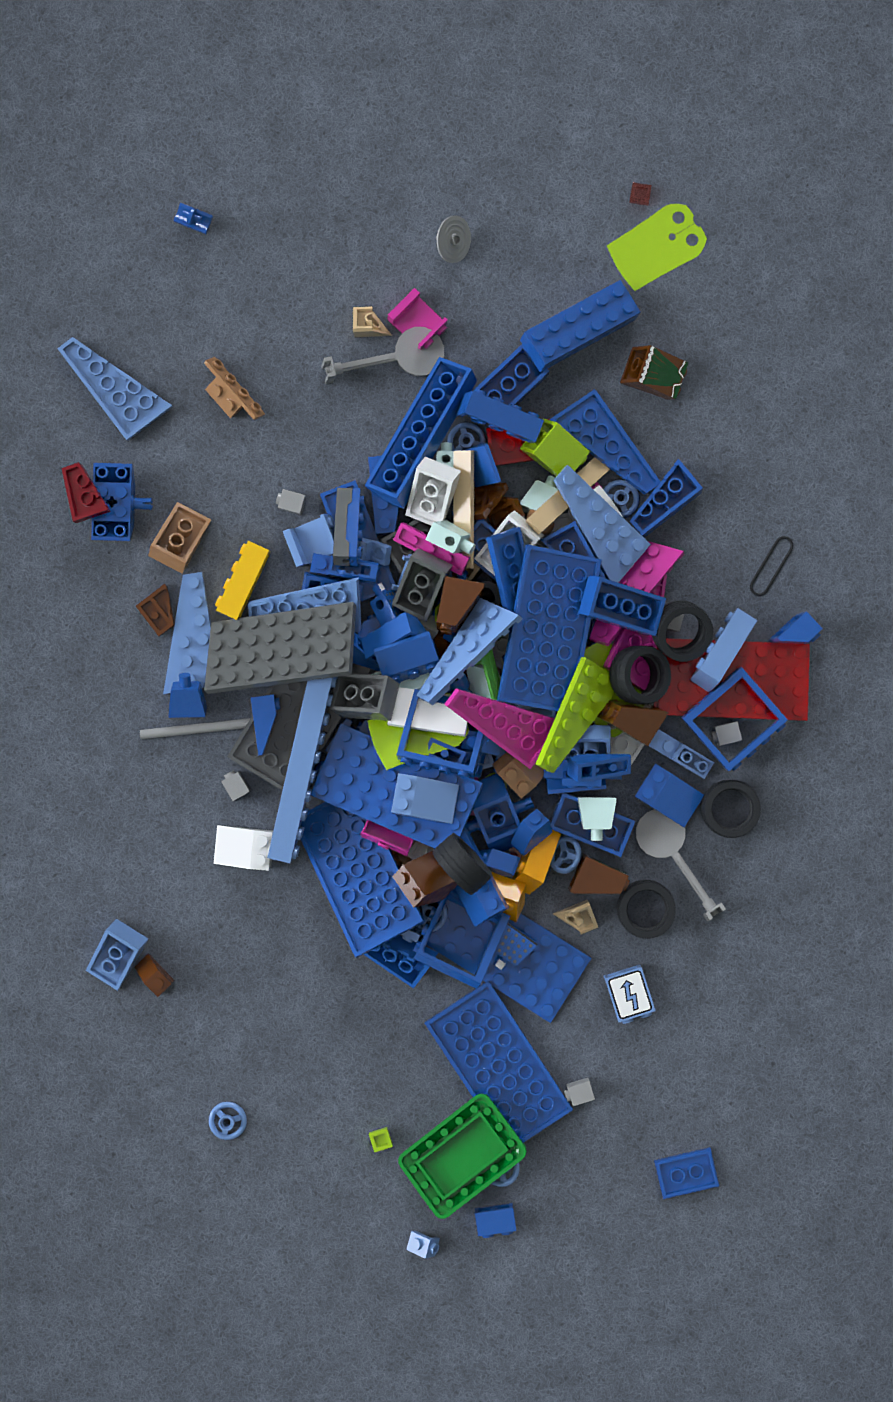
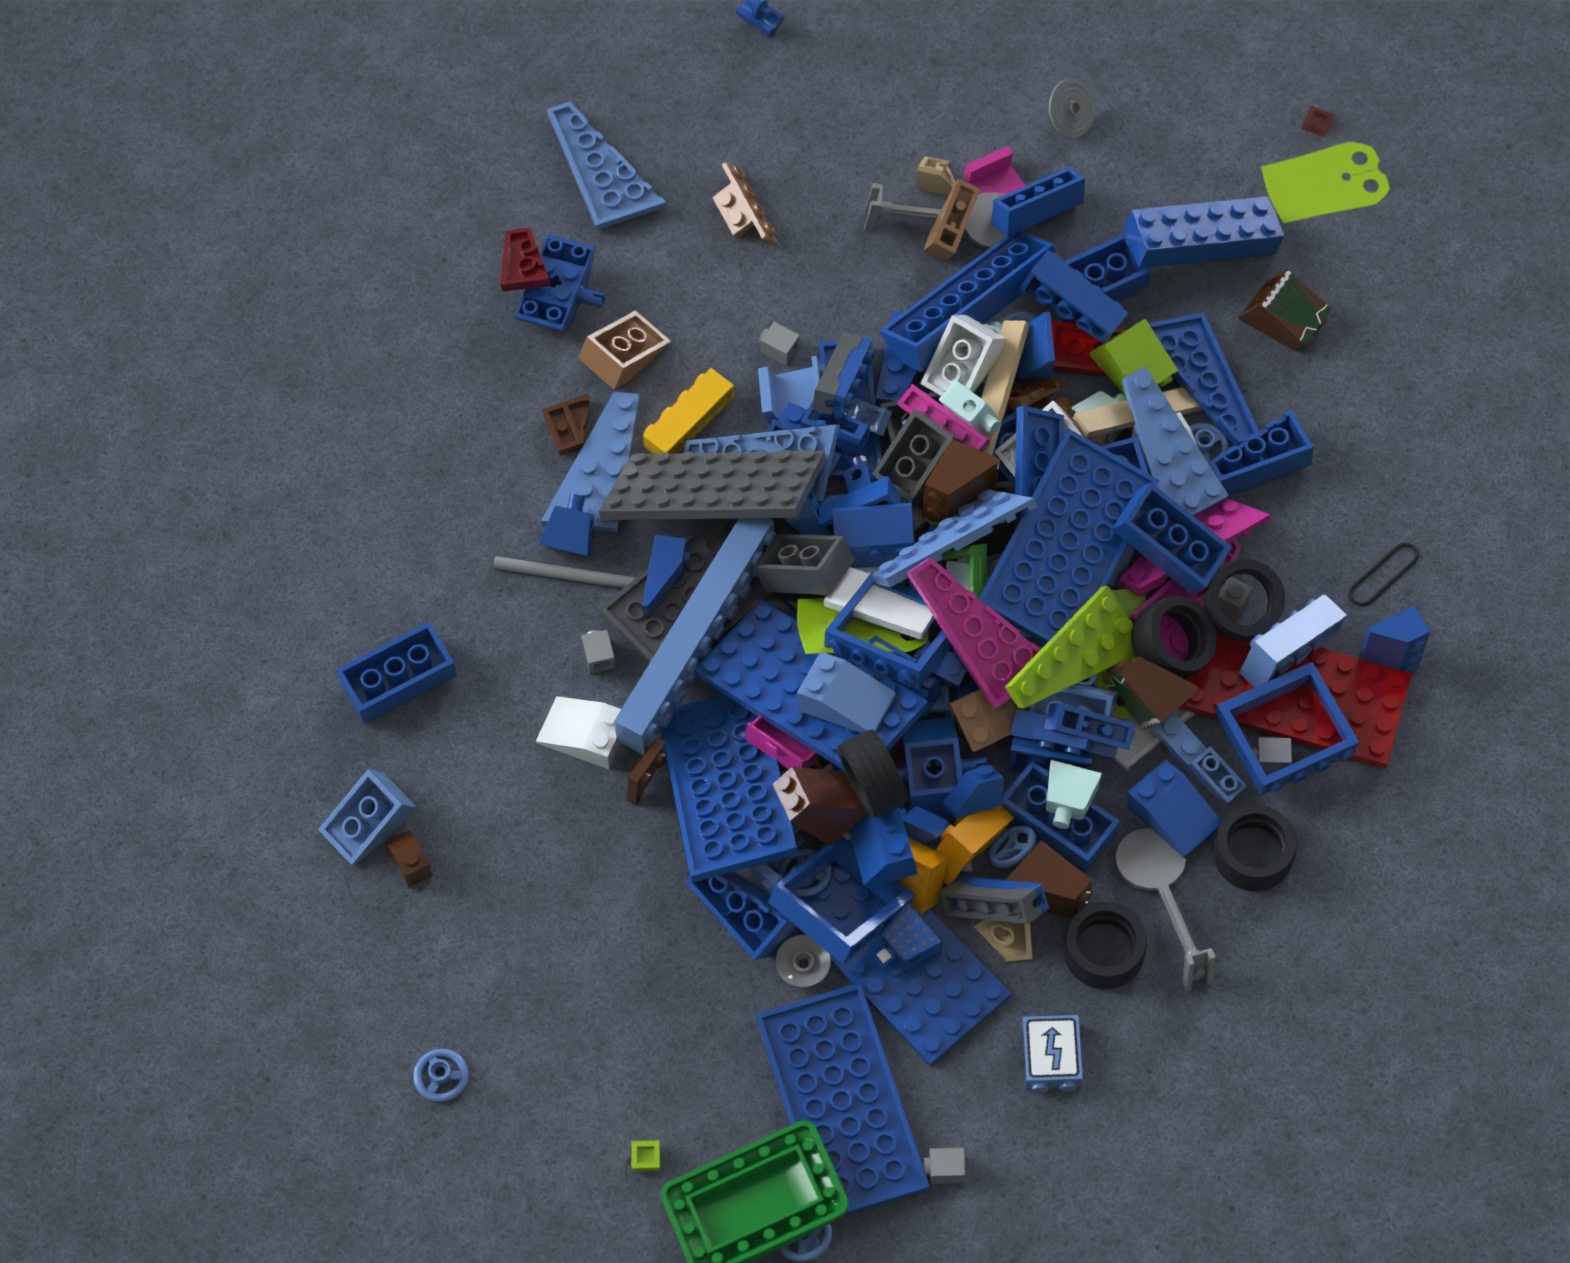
camera: 15 degrees right, 25 degrees down
(100, 844) = (396, 672): none -> blue brick
(297, 879) = (645, 769): none -> reddish brown wing
(390, 366) = (951, 221): none -> medium nougat slope
(442, 985) = (802, 949): none -> light grey dish
(450, 332) = (1038, 201): none -> blue brick
(566, 907) = (994, 900): none -> dark grey piece

